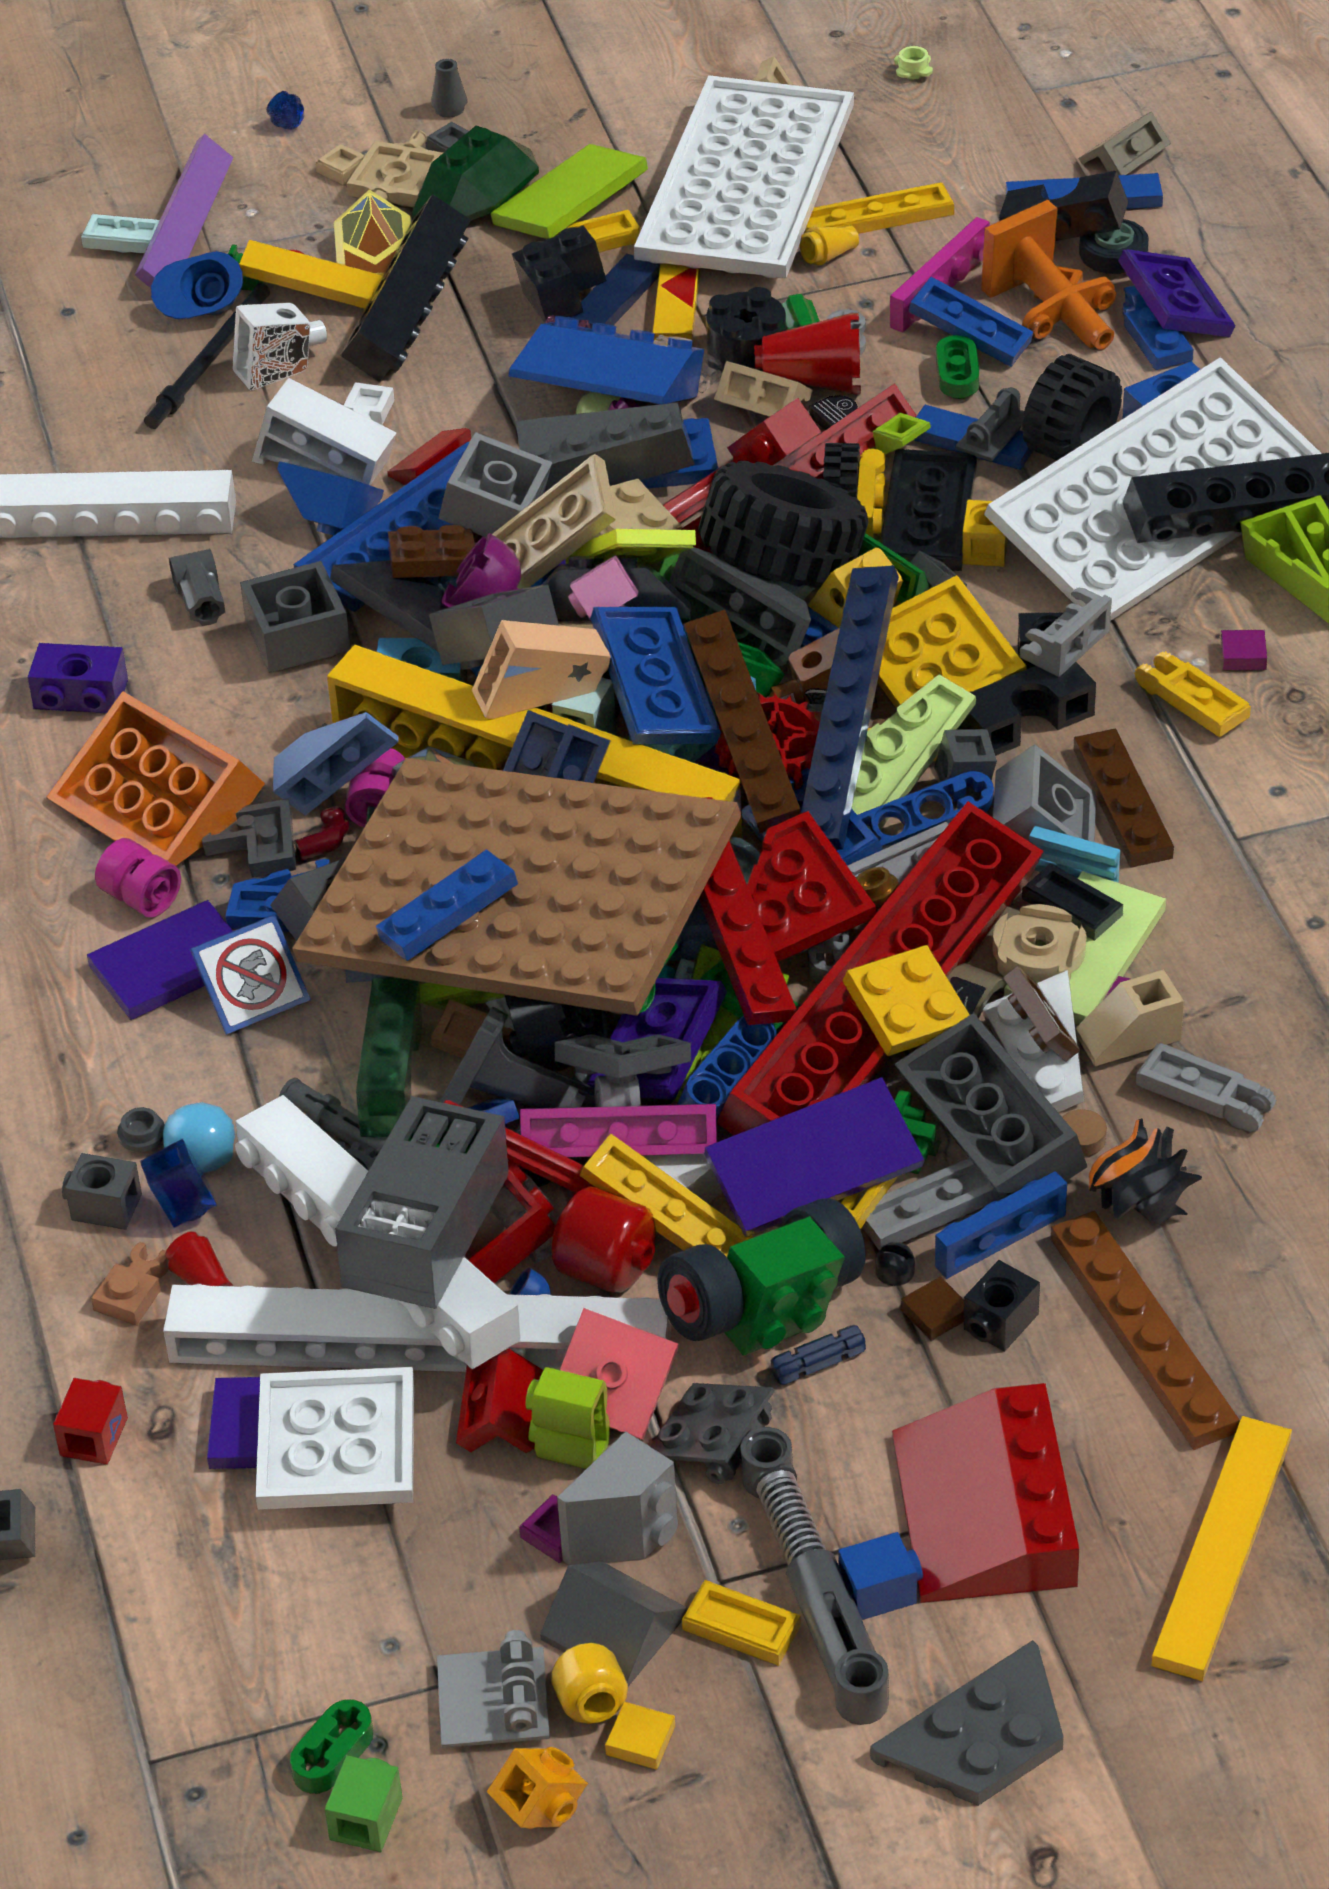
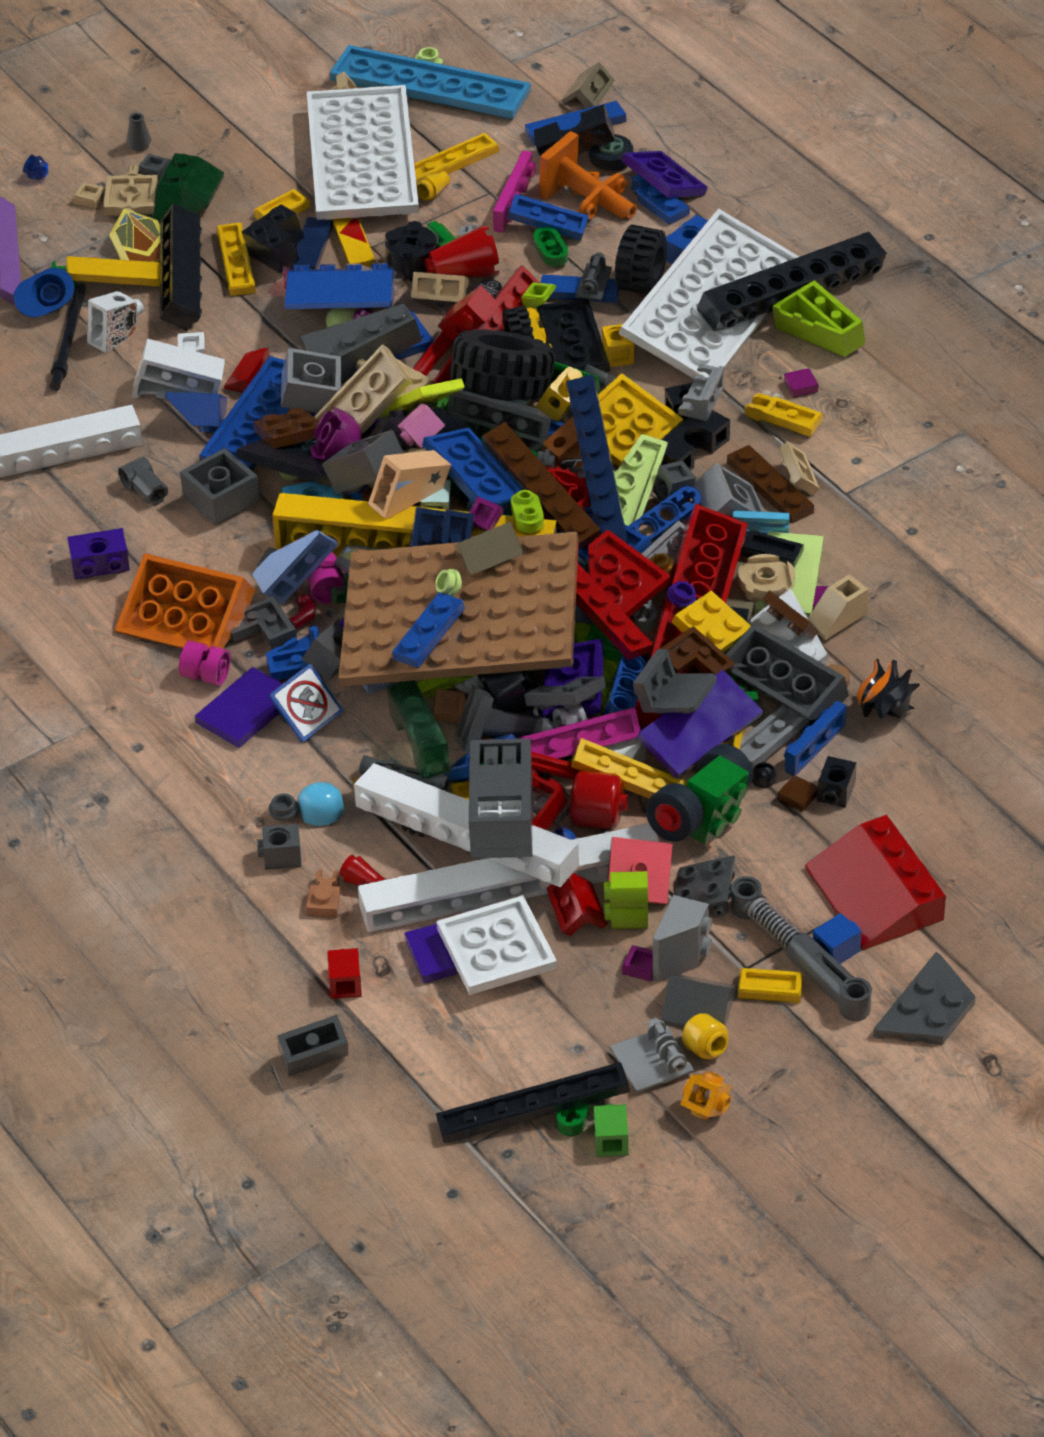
camera: 20 degrees left, 0 degrees up
(178, 1183) = (328, 830): clear blue brick -> none
(265, 1719) = (532, 1102): none -> black tile
(495, 297) = (235, 259): none -> yellow tile
(506, 838) = (448, 582): none -> yellowish green plate
(569, 191) = (250, 184): lime tile -> none
(590, 798) = (489, 548): none -> dark tan panel
(630, 746) = (485, 514): none -> magenta tile
(640, 1735) = (744, 1057): yellow tile -> none
(699, 755) = (527, 512): none -> lime plate
(773, 1086) = (665, 691): none -> dark grey bracket
(779, 681) = (546, 458): none -> dark grey plate
(818, 1354) = (744, 834): dark blue axle -> none
(850, 1032) = (697, 650): none -> reddish brown plate
(873, 940) = (681, 594): none -> dark purple plate
(905, 97) = (433, 81): none -> dark azure plate
(1145, 1330) = (919, 775): dark orange plate -> none
(1175, 783) = (799, 468): none -> tan plate
(1205, 1087) = (894, 636): light grey hinge -> none
(1221, 1549) = (1014, 879): yellow tile -> none

